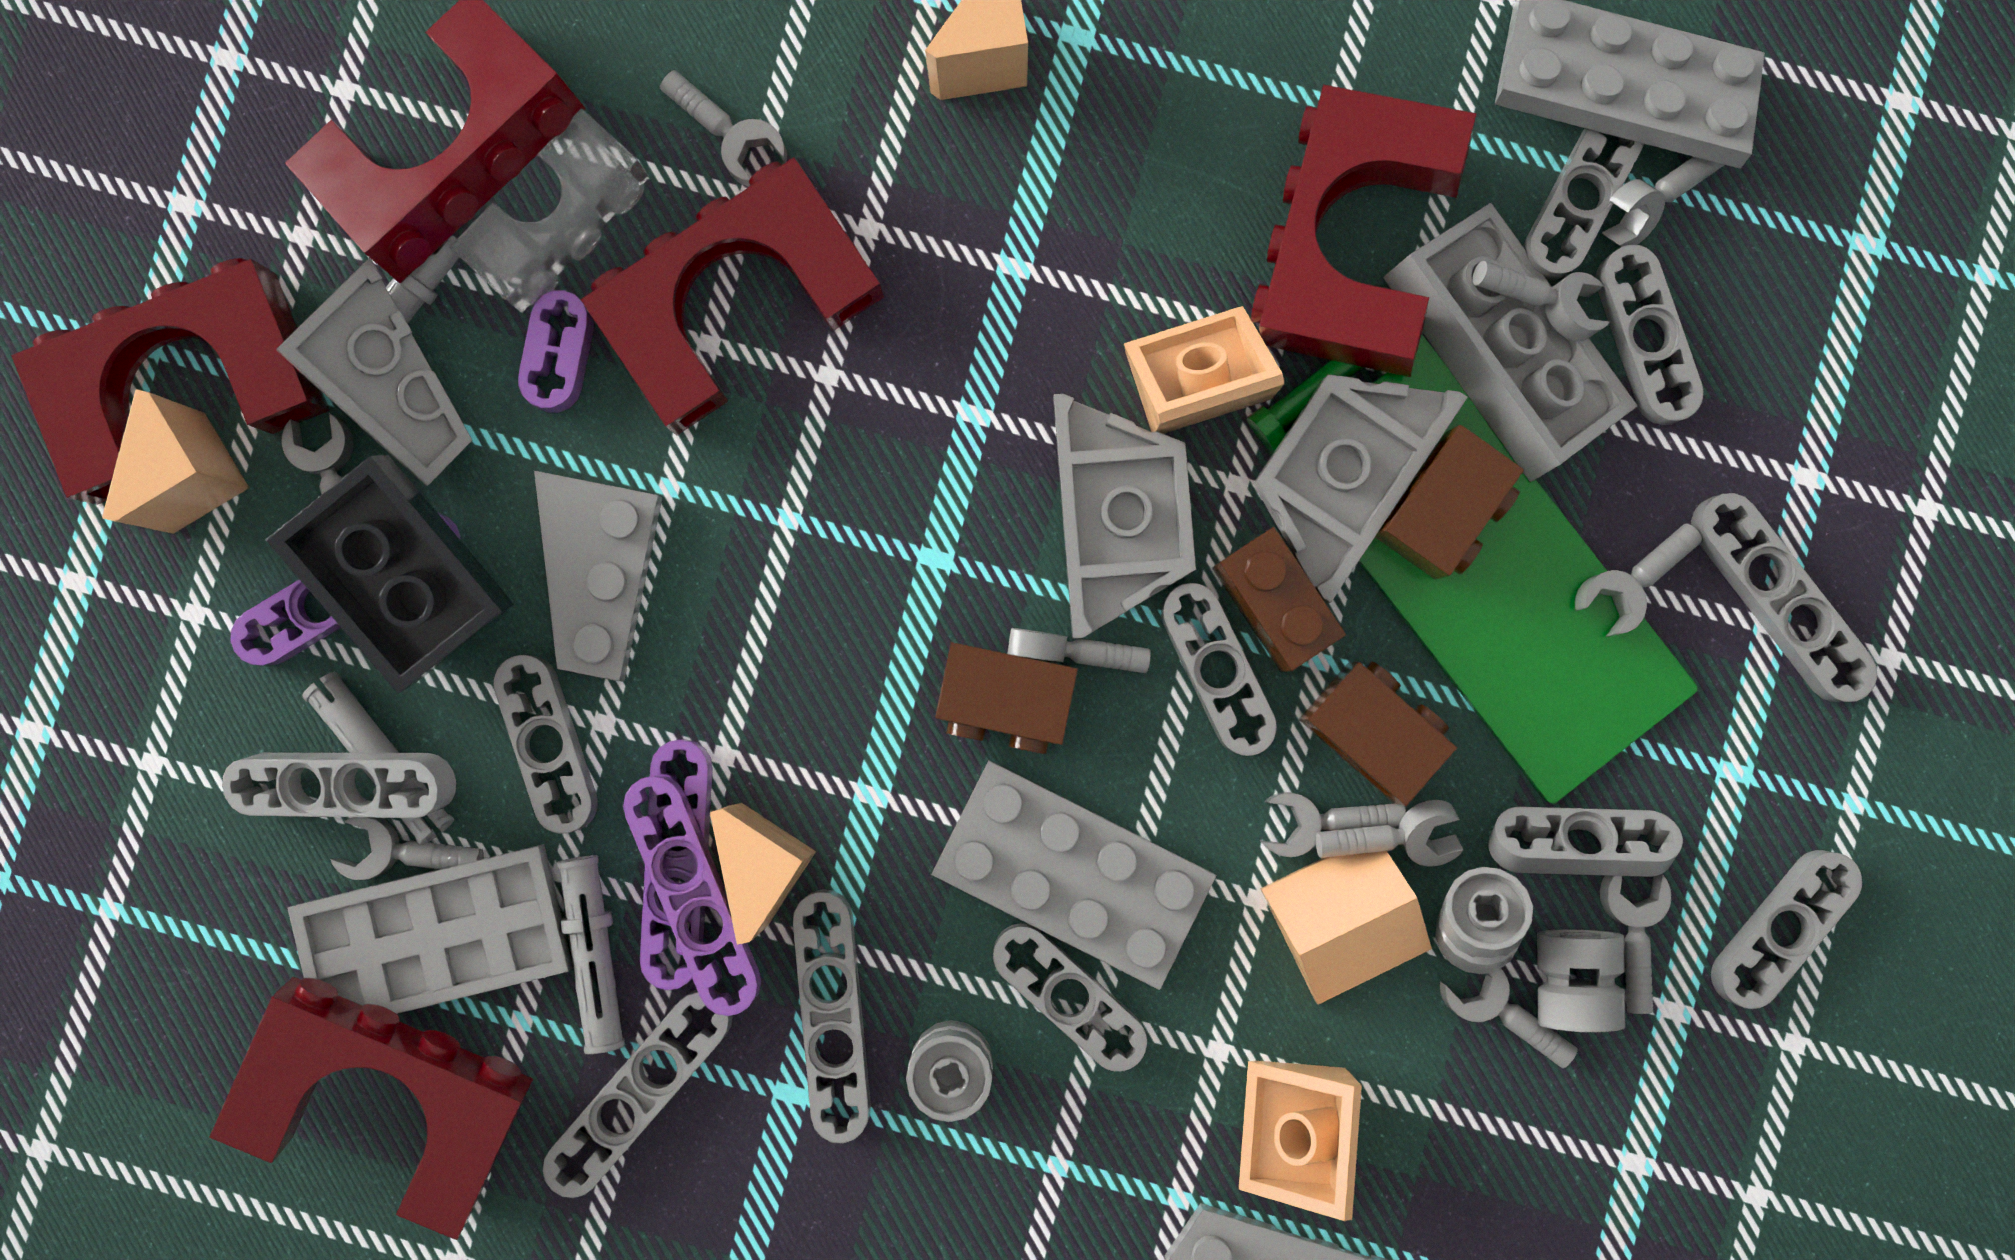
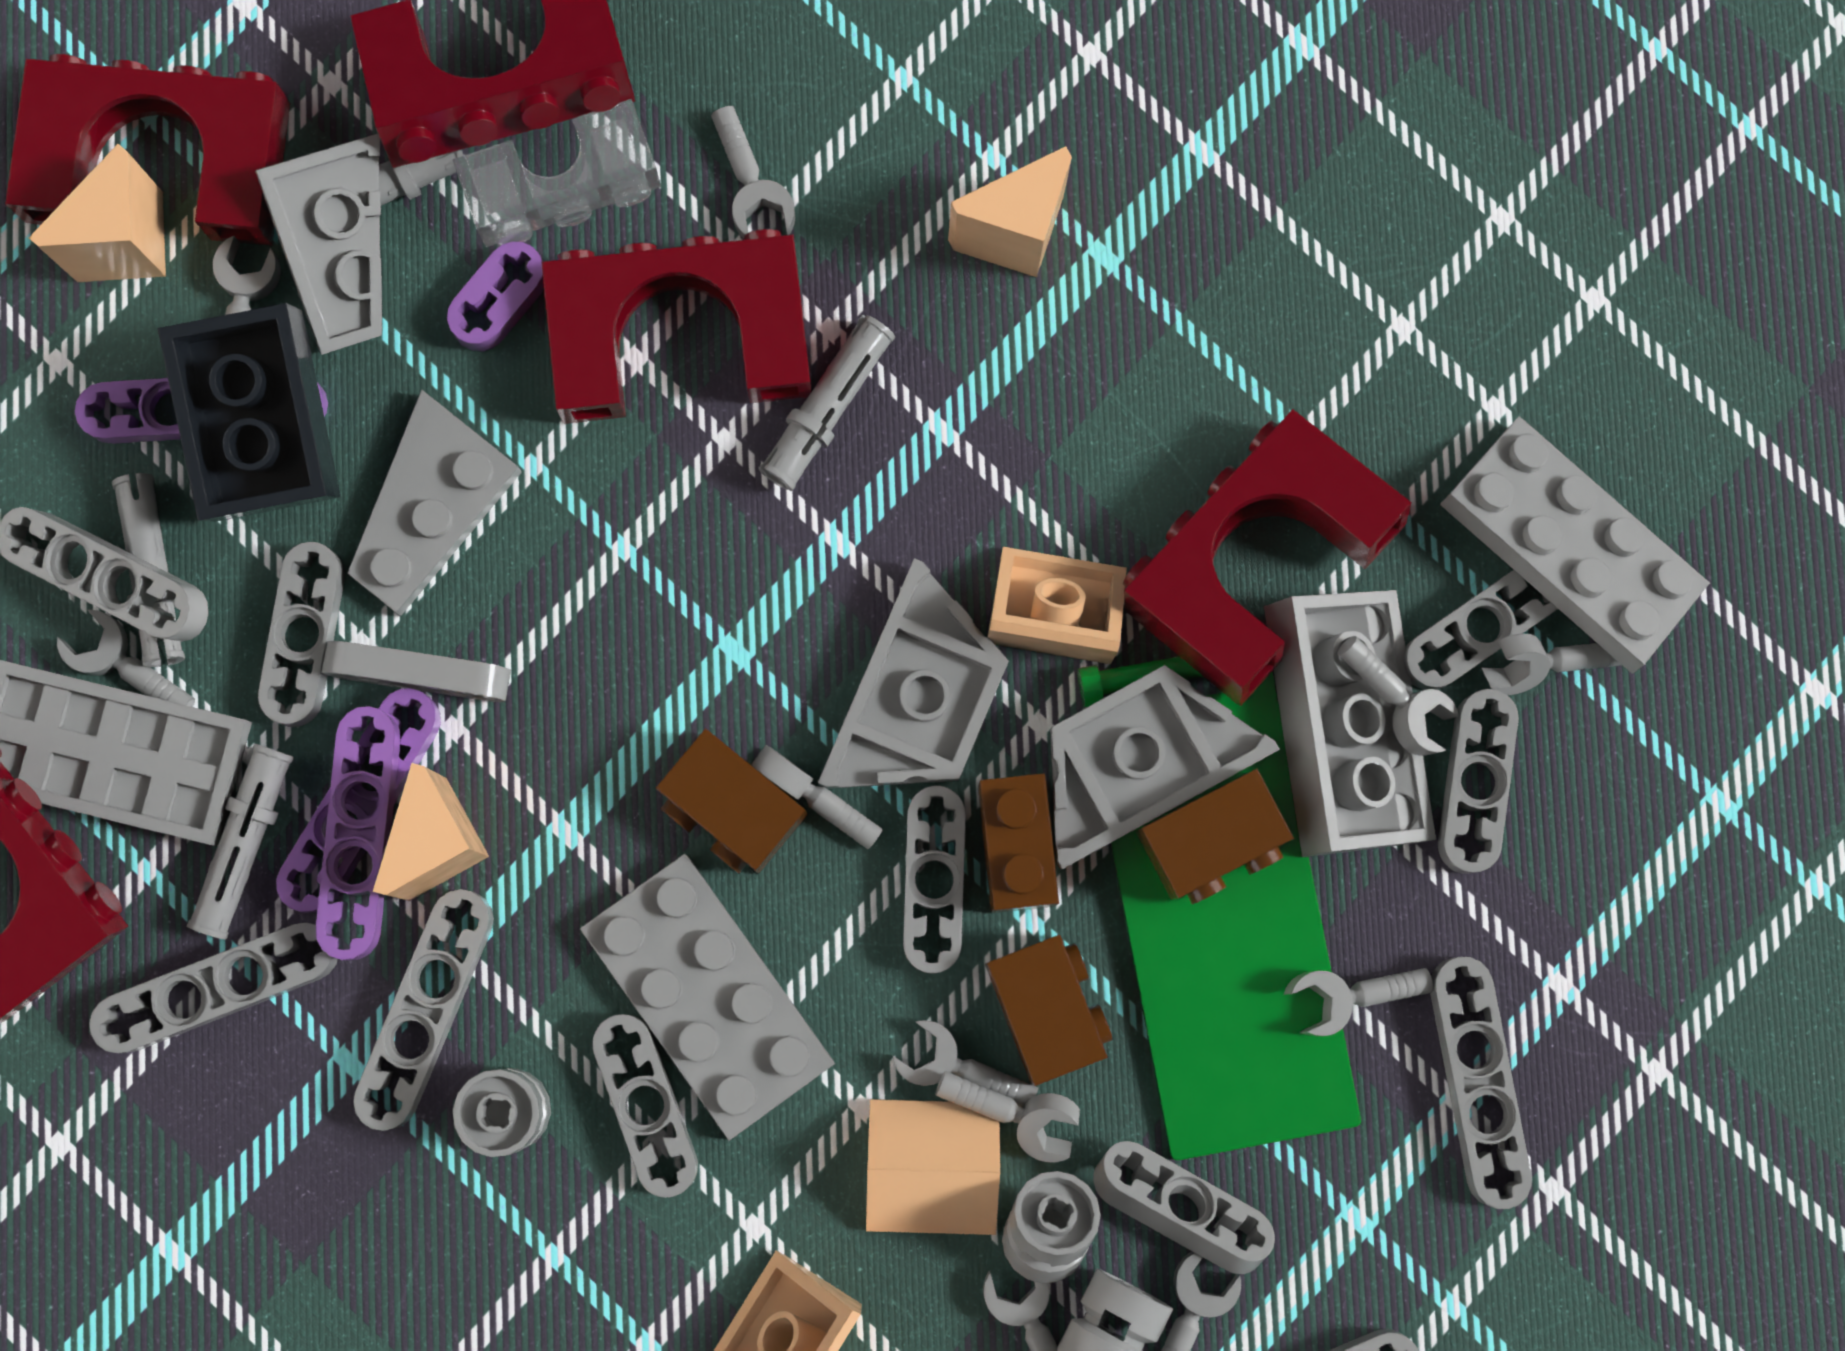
camera: 20 degrees right, 5 degrees down
(665, 724) = (416, 671): none -> light grey beam
(900, 307) = (813, 422): none -> light grey pin

